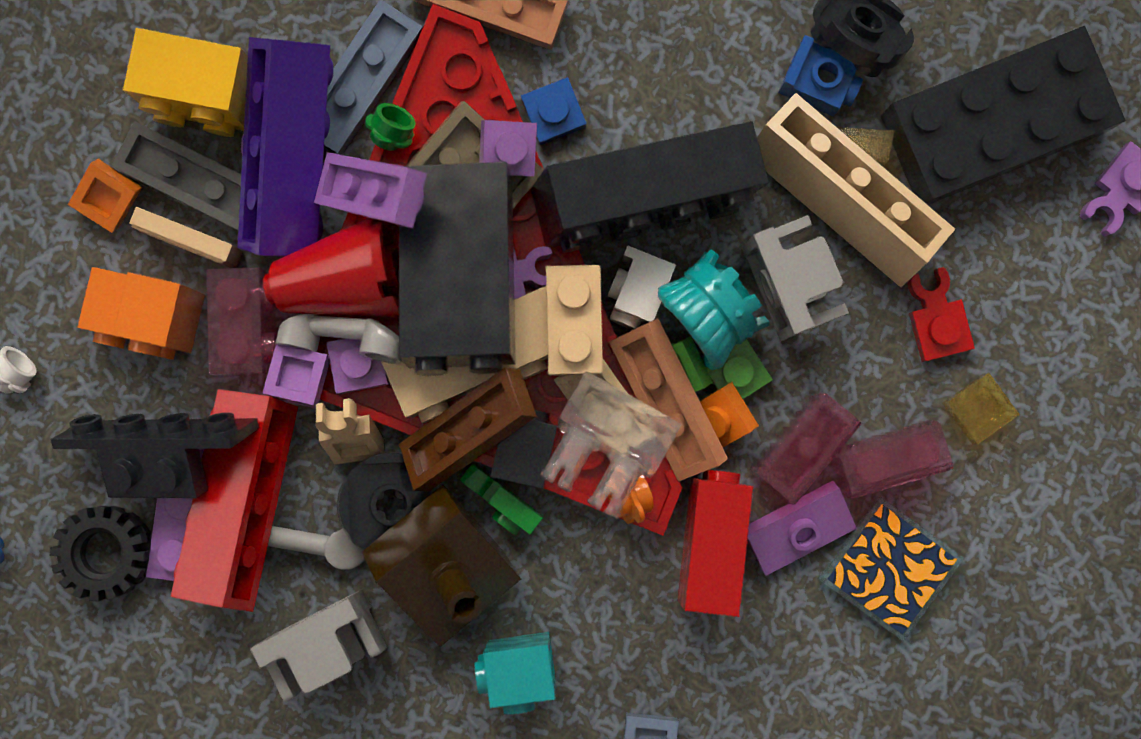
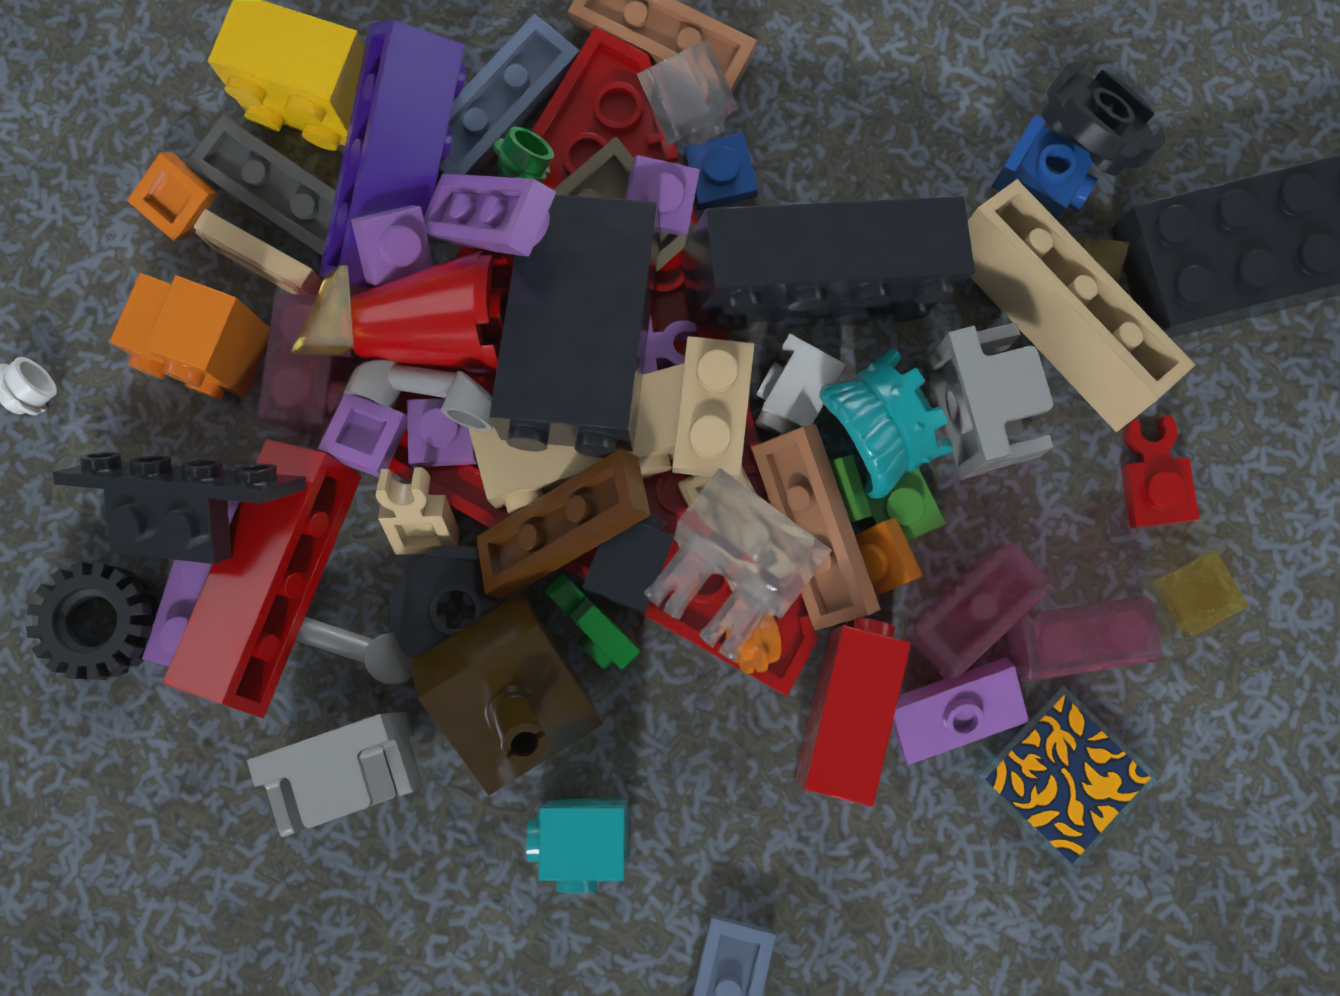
camera: 10 degrees right, 5 degrees down
(255, 287) = (329, 319): none -> clear yellow piece
(296, 219) = (392, 244): none -> medium lavender plate
(518, 54) = (689, 94): none -> clear brick

